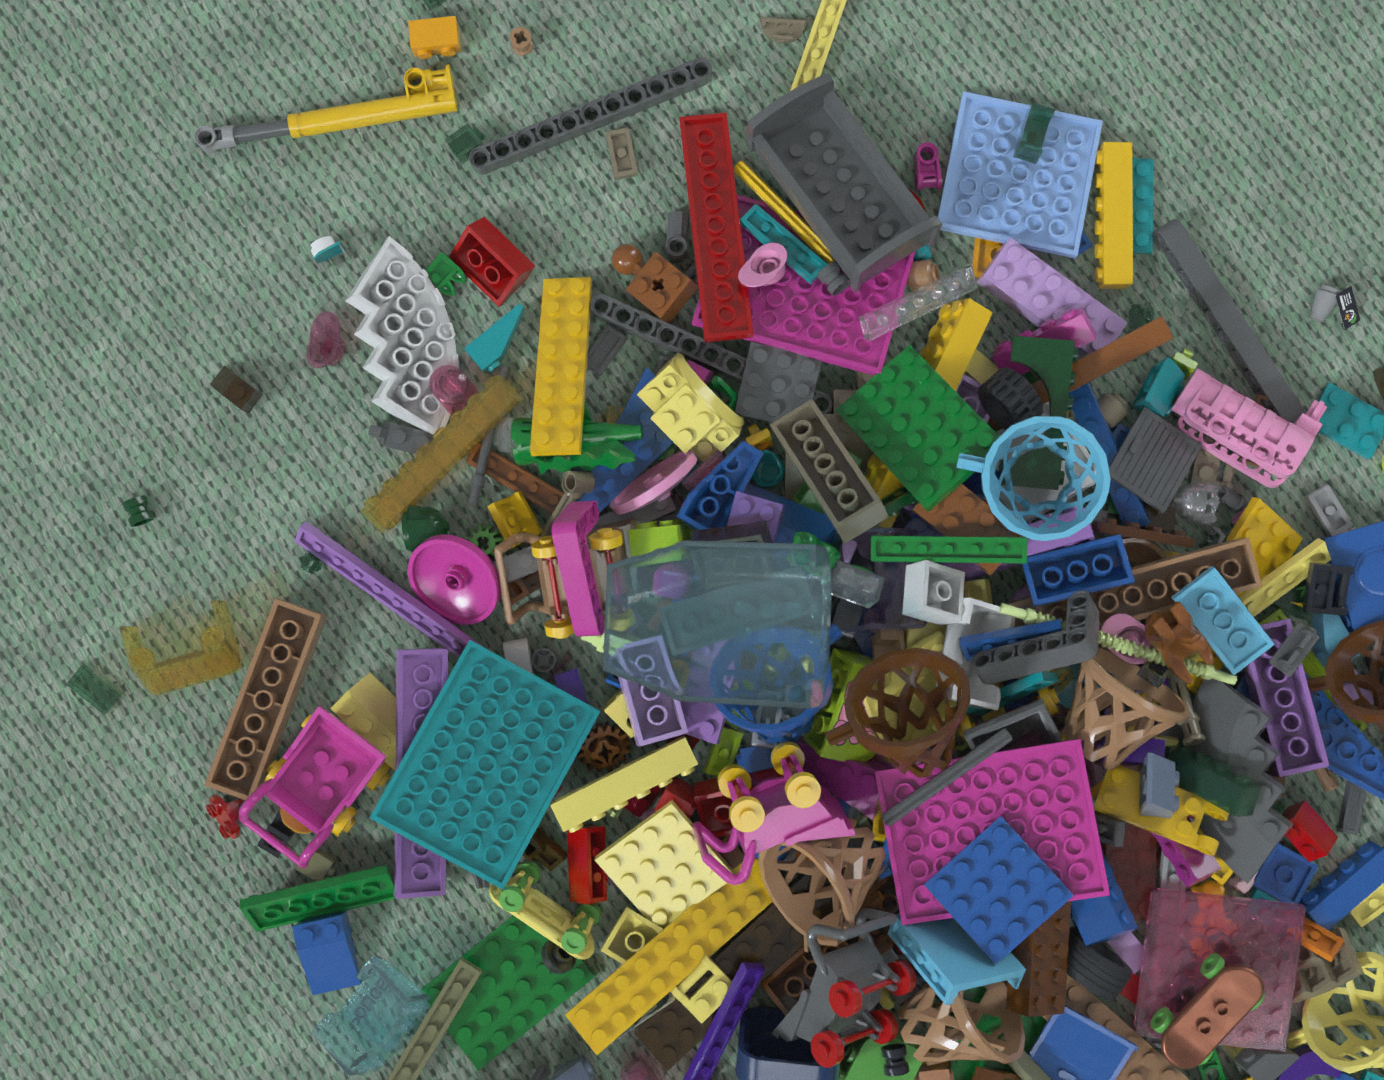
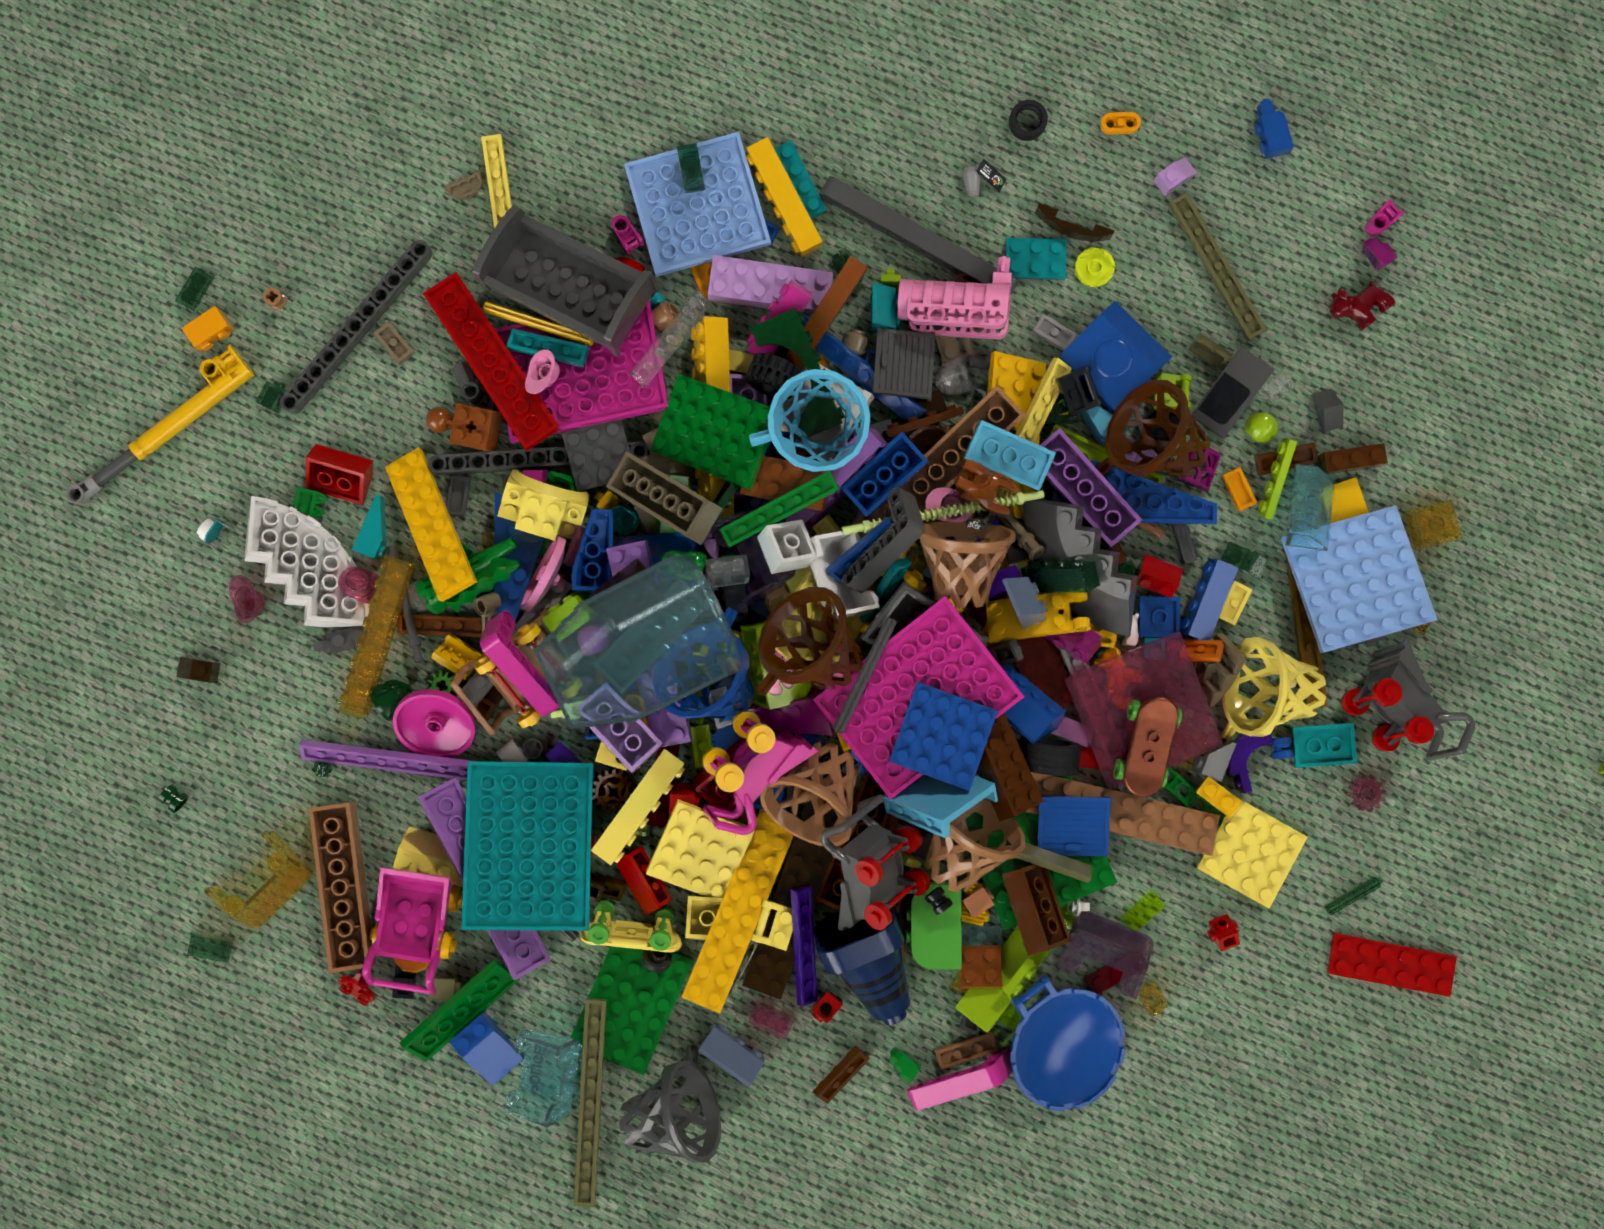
camera: 20 degrees left, 0 degrees up
(833, 277) = (596, 353): dark grey wheel -> none
(1294, 649) = (1073, 448): dark grey hinge -> none

